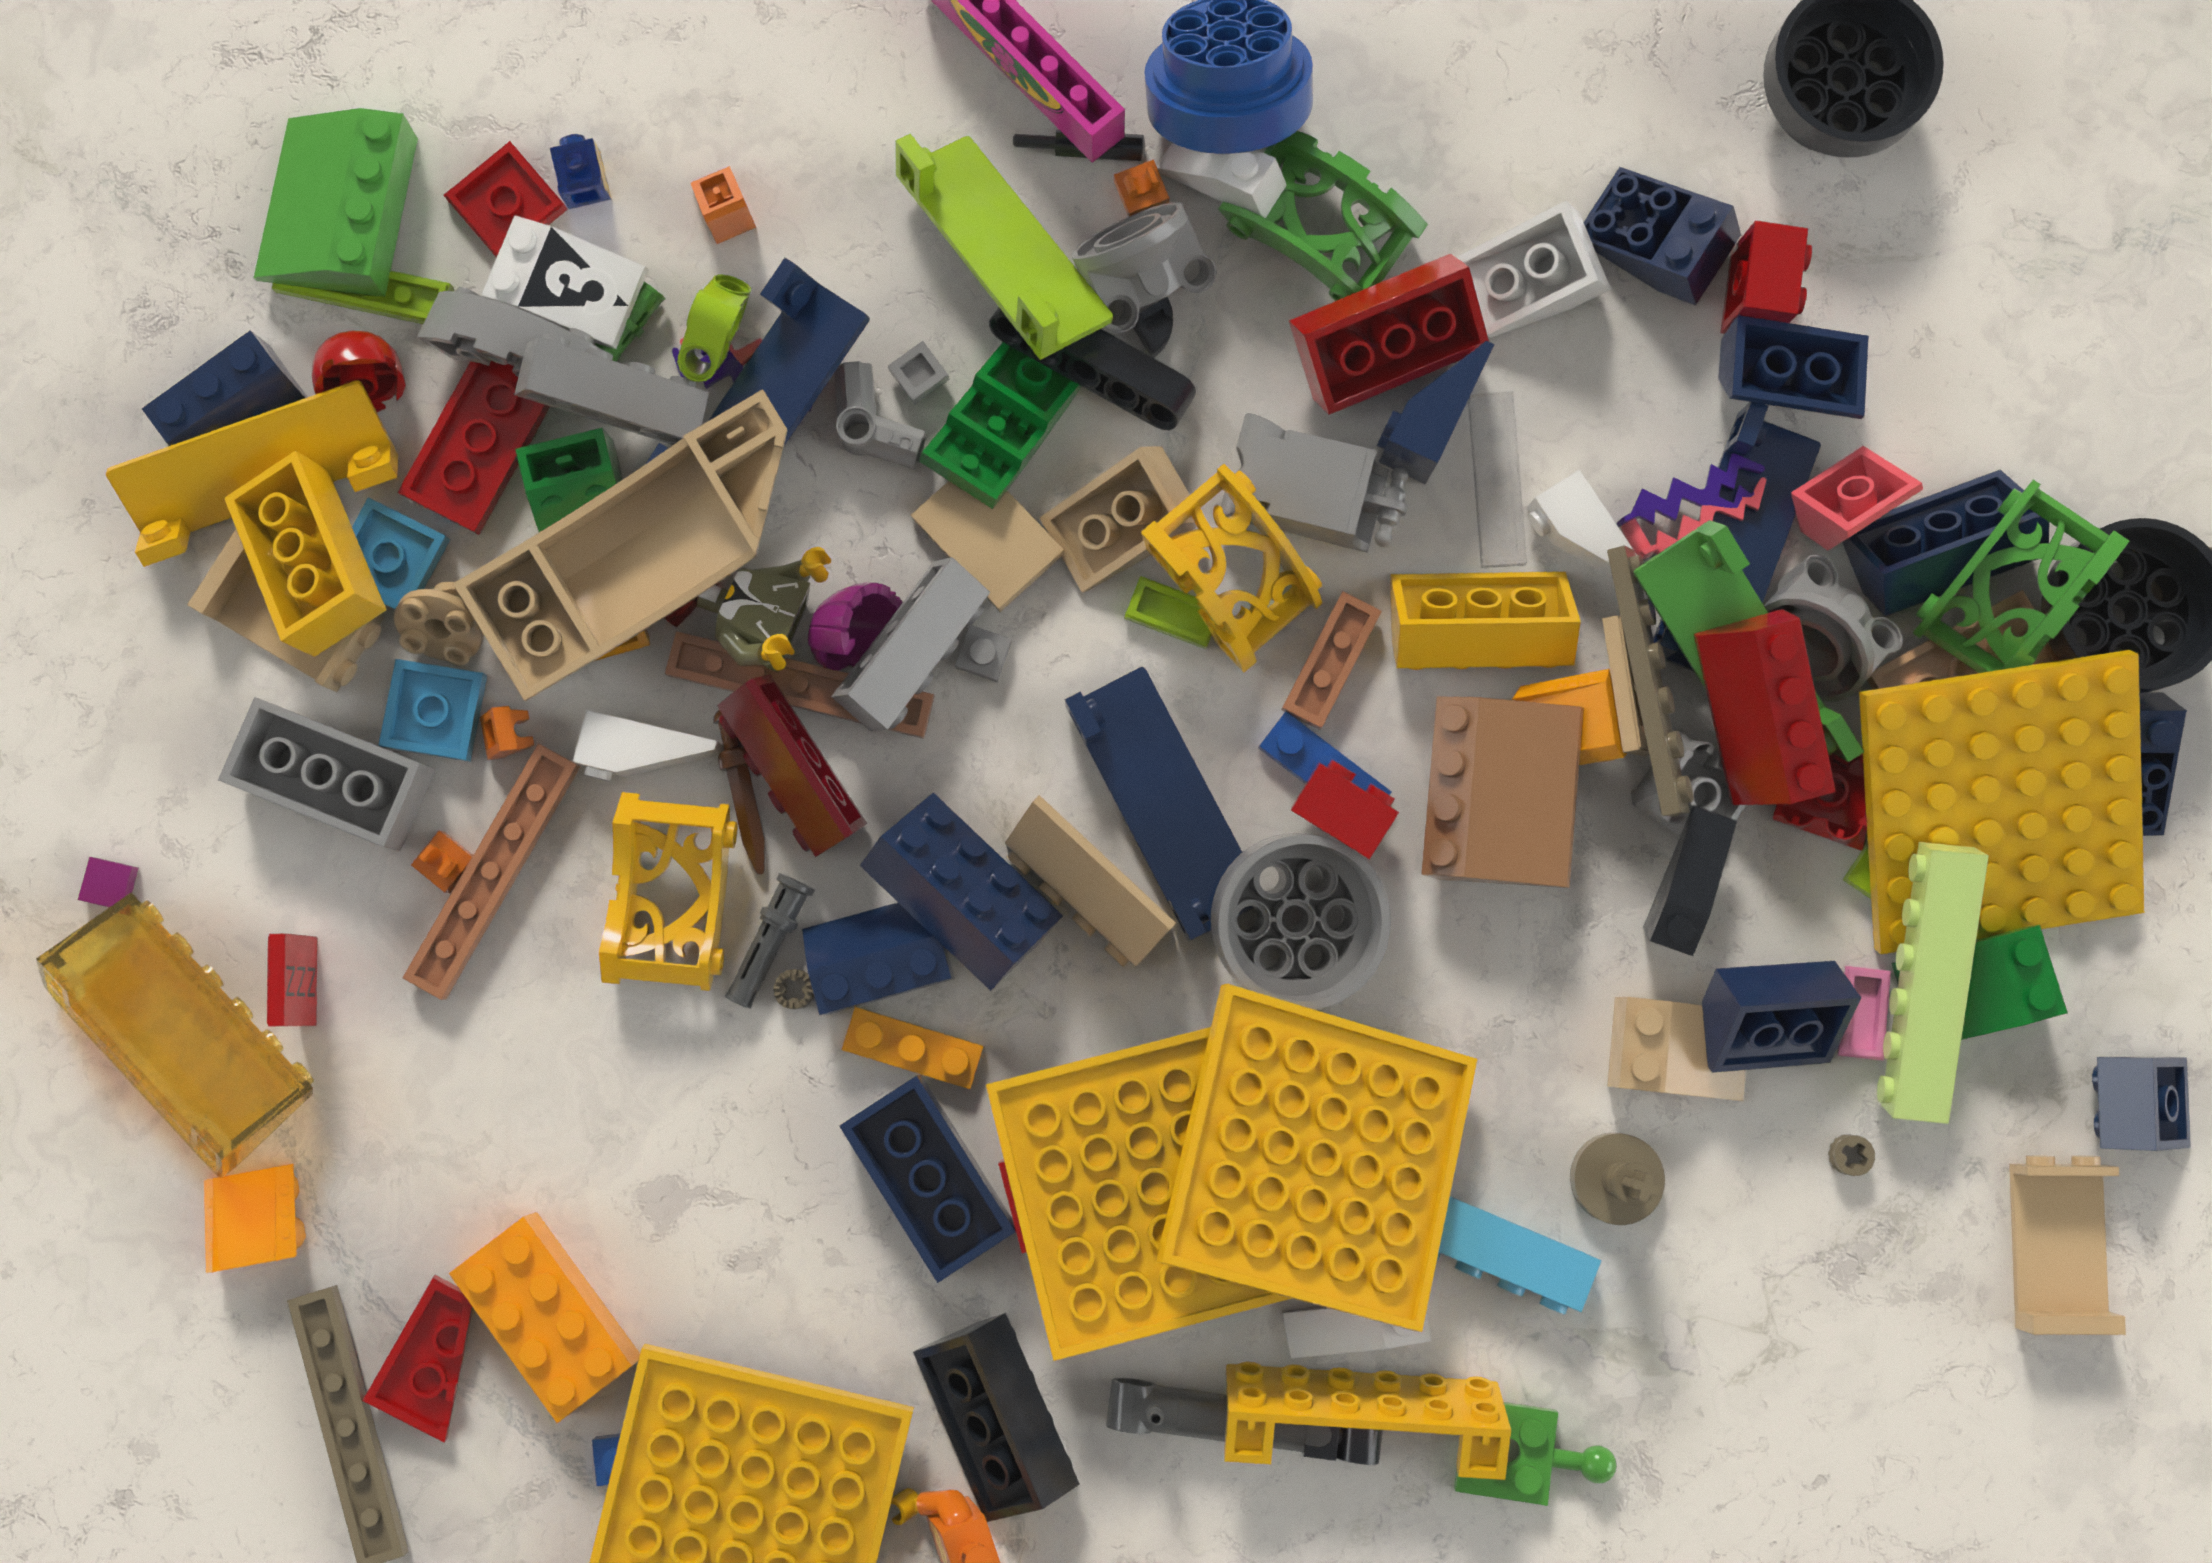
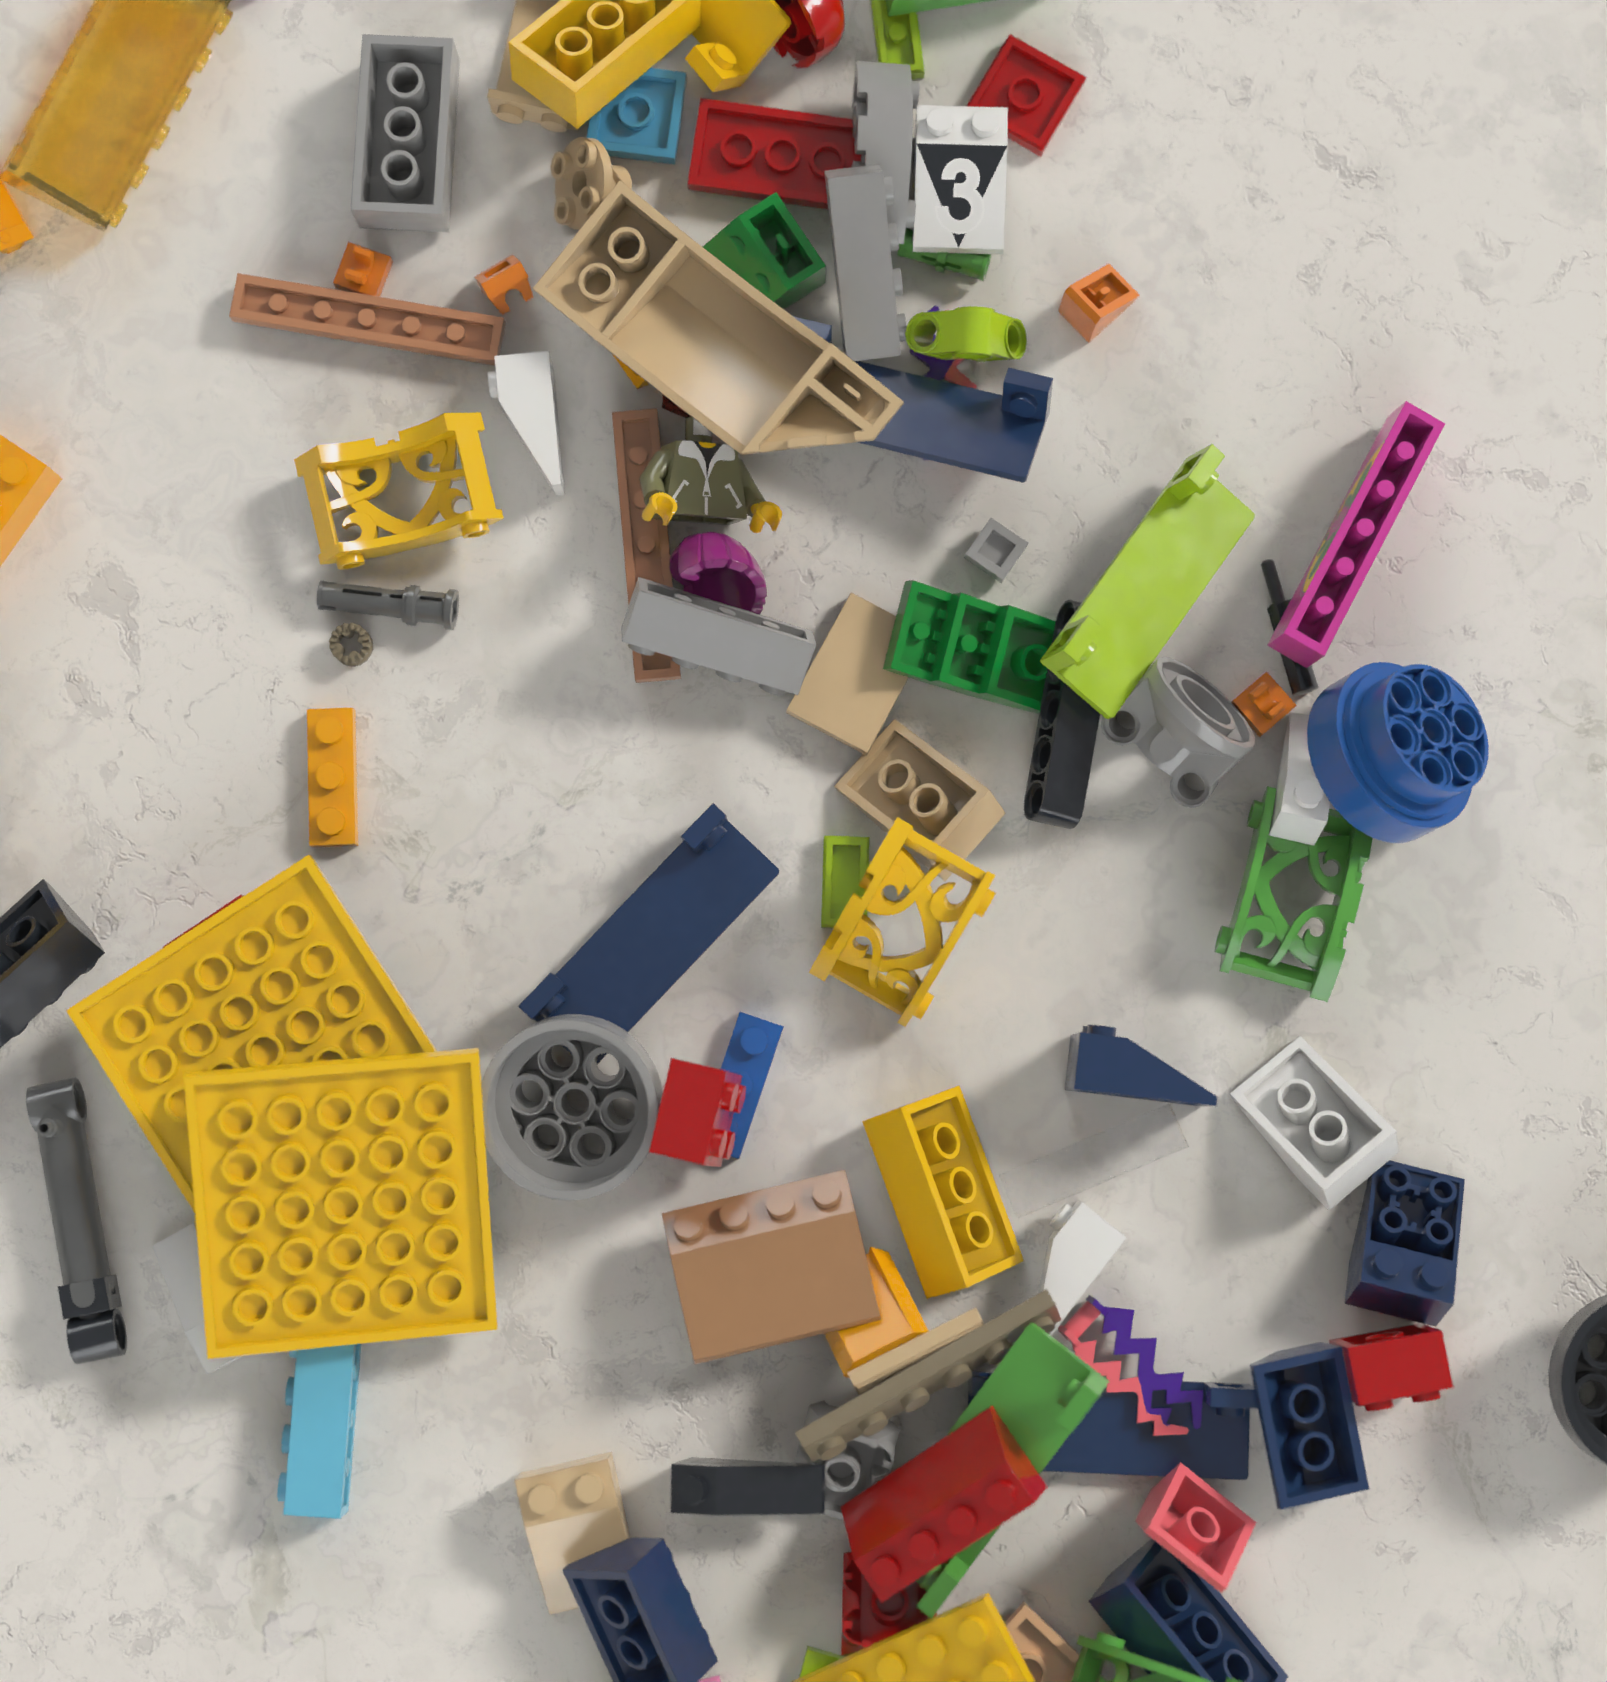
camera: 70 degrees right, 0 degrees up
(291, 980) = (198, 172): red tile -> none
(433, 710) = (502, 208): dark azure plate -> none
(588, 181) = (1075, 167): clear blue brick -> none
(743, 797) = (552, 510): reddish brown sword -> none
(790, 764) = (561, 564): dark red slope -> none
(872, 958) = (408, 710): dark blue slope -> none
(885, 437) = (918, 539): light grey piece -> none
(928, 1178) = (209, 834): dark blue brick -> none
(961, 890) = (493, 768): dark blue brick -> none
(983, 653) = (739, 711): light grey plate -> none
(1088, 883) = (543, 889): tan slope -> none
(1155, 326) = (1127, 766): black tile -> none
(1319, 485) = (1018, 981): light grey piece -> none
(1331, 660) = (850, 1054): nougat plate -> none
(1360, 1400) = (128, 1330): yellow bracket -> none
(1389, 333) = (1197, 1000): red brick -> none
(1530, 1472) = (114, 1517): bright green plate -> none
(1617, 1178) = (430, 1511): dark tan piece -> none
(1837, 628) = (1052, 1548): light grey piece -> none

